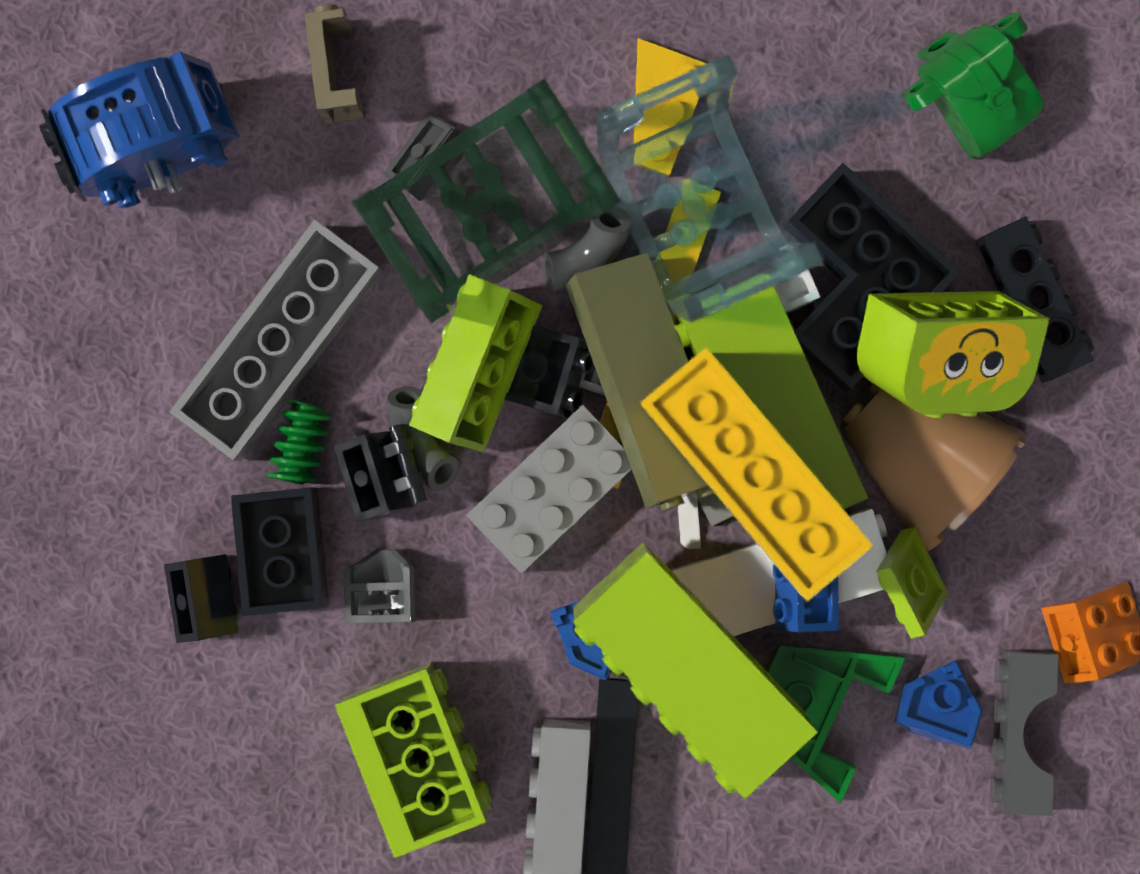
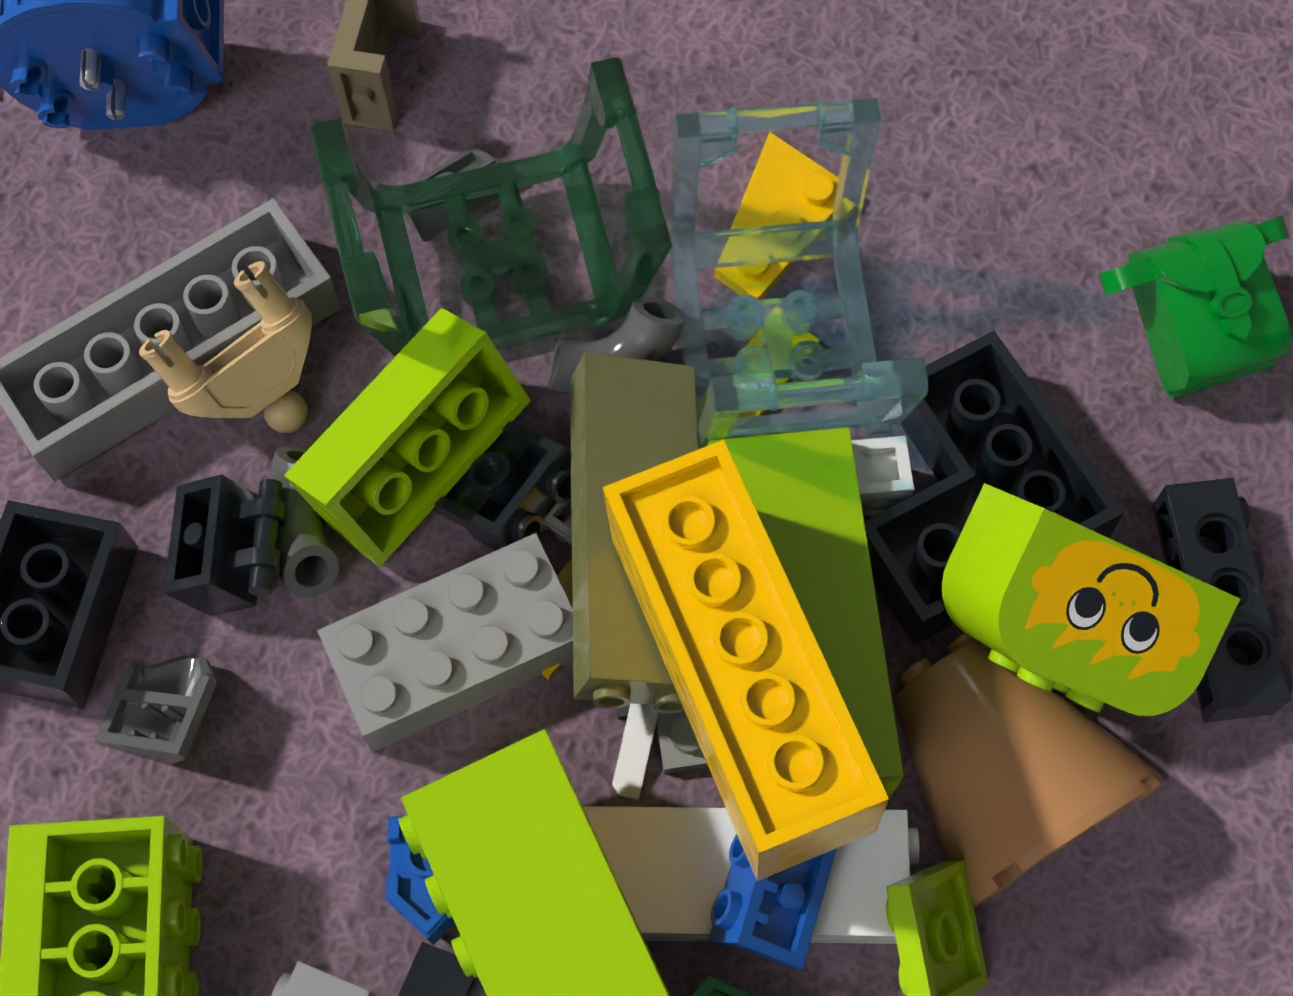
camera: 15 degrees right, 20 degrees down
(300, 443) = (137, 473): green piece -> none
(351, 350) = (252, 370): none -> tan connector

